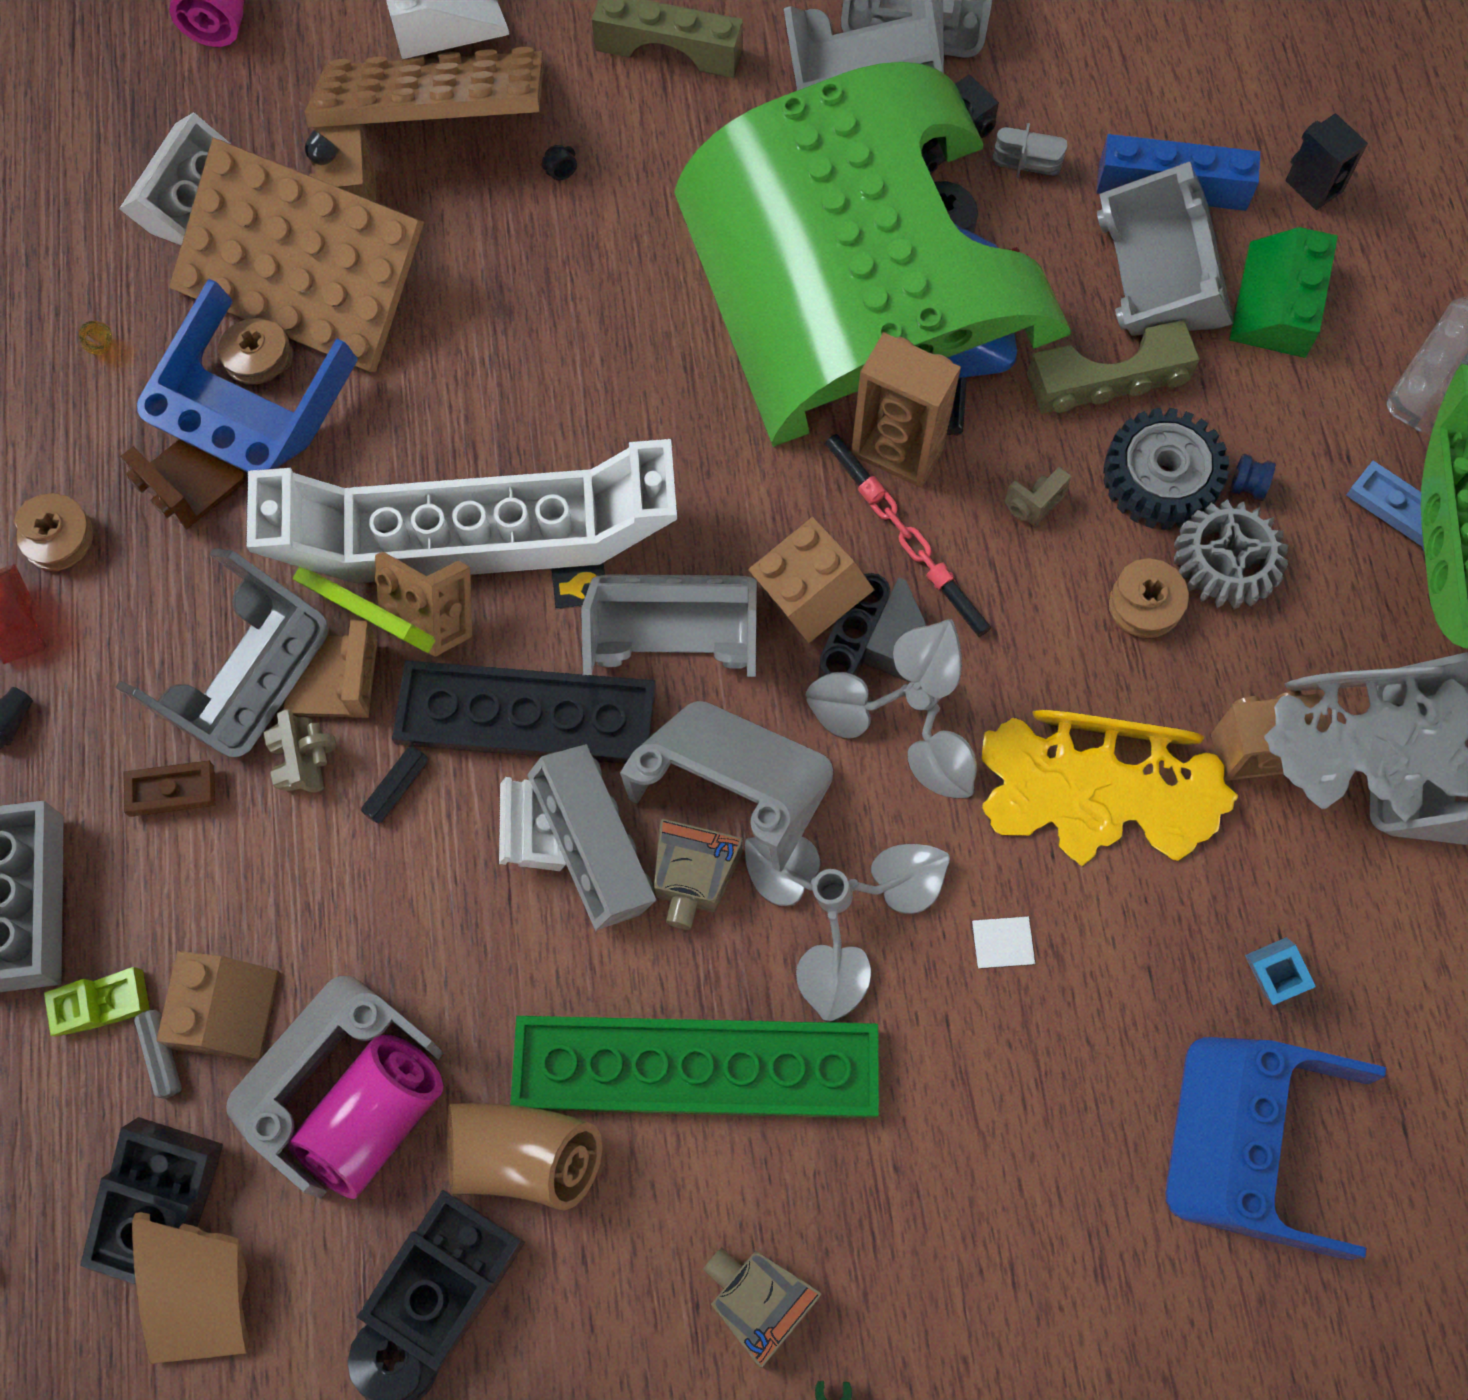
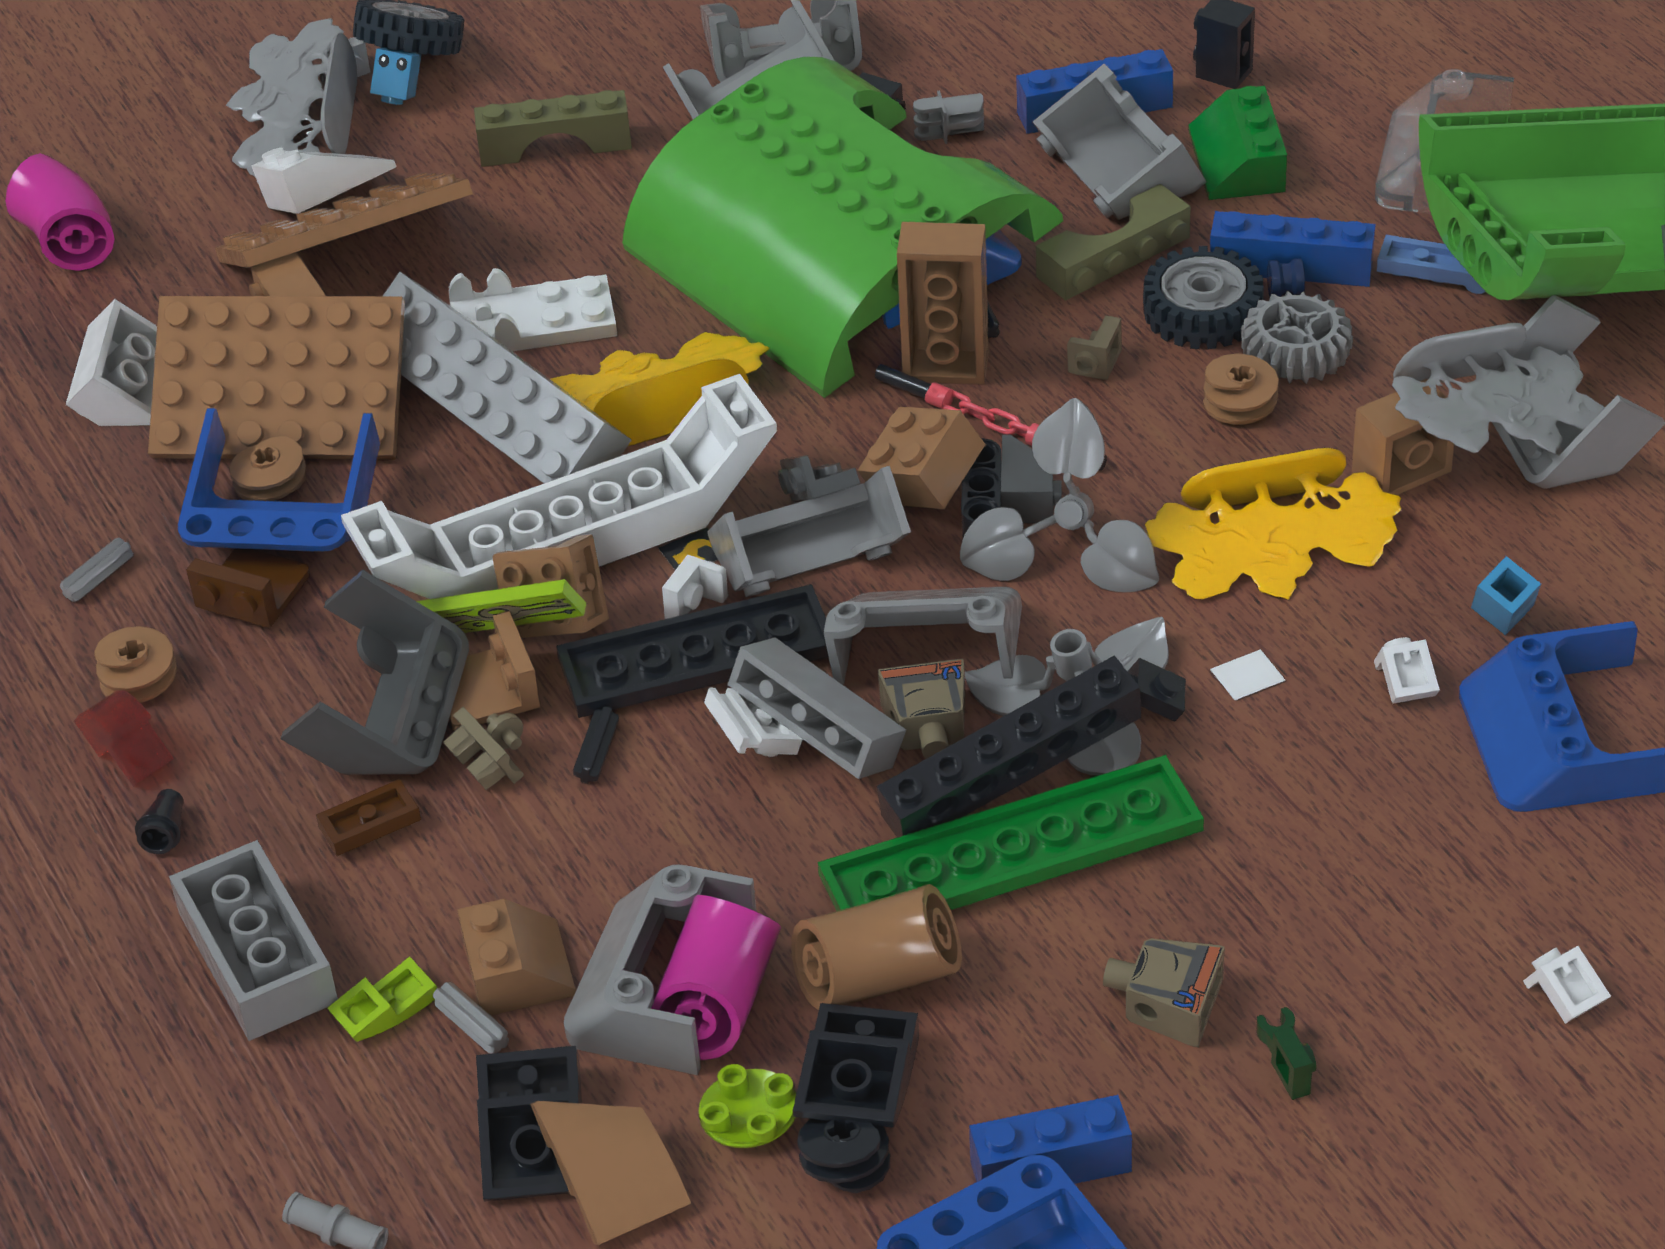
camera: 20 degrees left, 25 degrees down
(73, 404) = (96, 569): none -> light grey axle
(100, 333) = (93, 511): clear yellow hinge -> none
(320, 149) = (273, 274): black hinge -> none
(338, 1266) = (747, 1106): none -> lime dish
(476, 343) = (498, 390): none -> light grey brick
(546, 637) = (690, 583): none -> white bracket
(557, 248) = (537, 313): none -> white hinge
(559, 162) = (496, 250): black plate -> none
(606, 373) = (652, 394): none -> yellow plant
(709, 566) = (808, 483): none -> dark grey bracket
(733, 971) = (1011, 749): none -> black brick
(901, 934) = (1159, 689): none -> black bracket
(1148, 1012) = (1407, 670): none -> white bracket
(1301, 453) = (1329, 249): none -> blue brick

